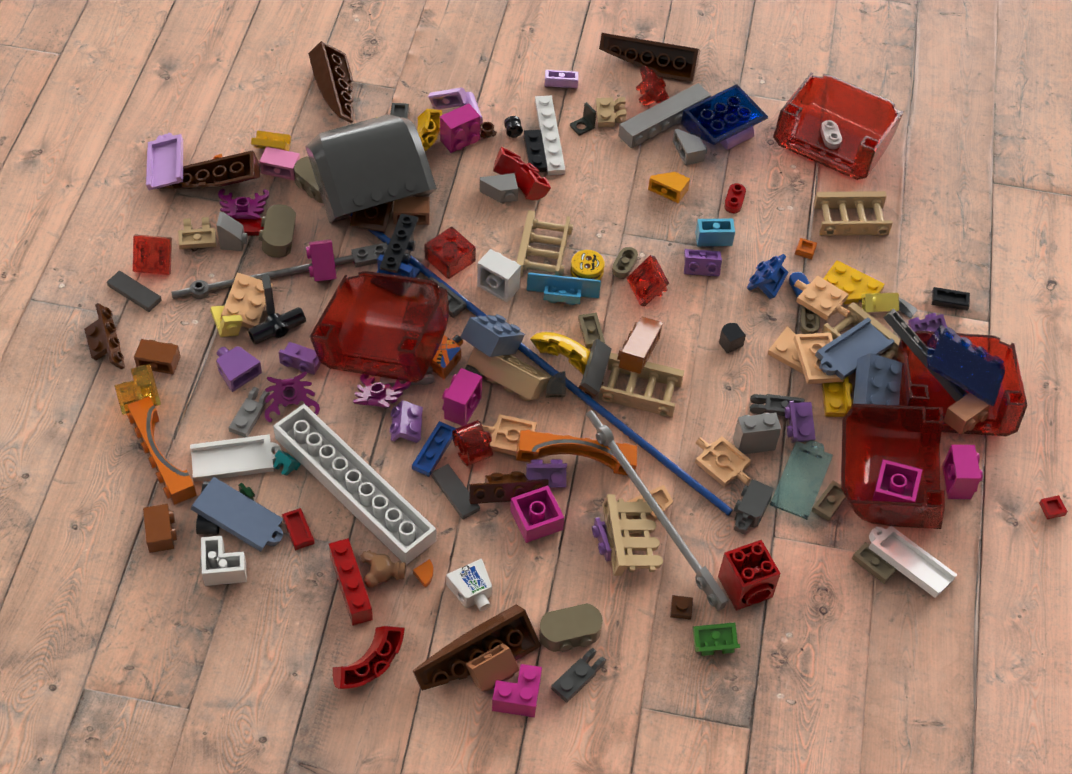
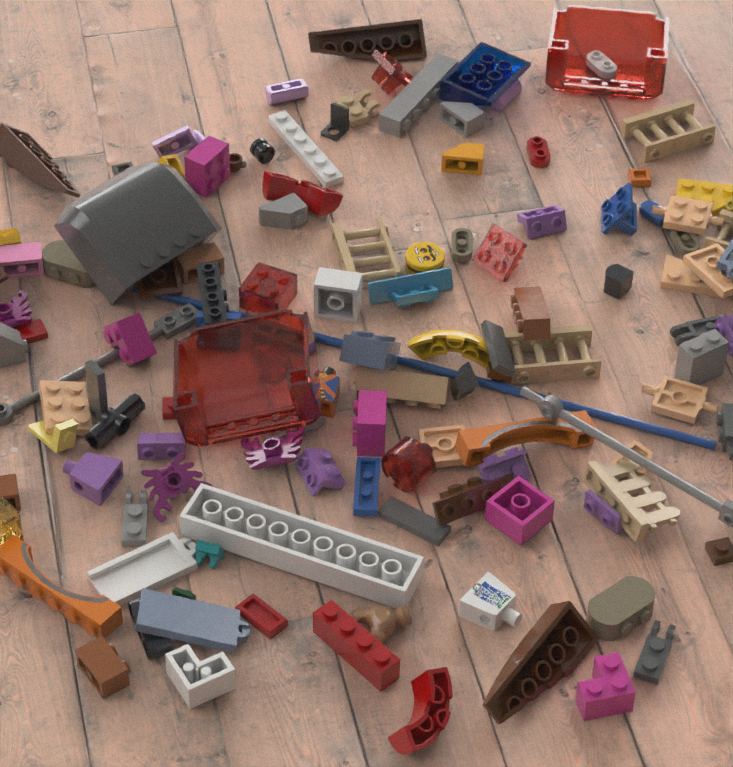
camera: 20 degrees left, 10 degrees down
(278, 230) = (60, 326): dark tan brick -> none
(424, 573) = (429, 611): orange tile -> none
(492, 666) = (563, 672): nougat brick -> none
(535, 149) = (297, 166): black plate -> none
(590, 329) = (464, 318): dark tan plate -> none
(715, 232) = (540, 187): medium azure brick -> none

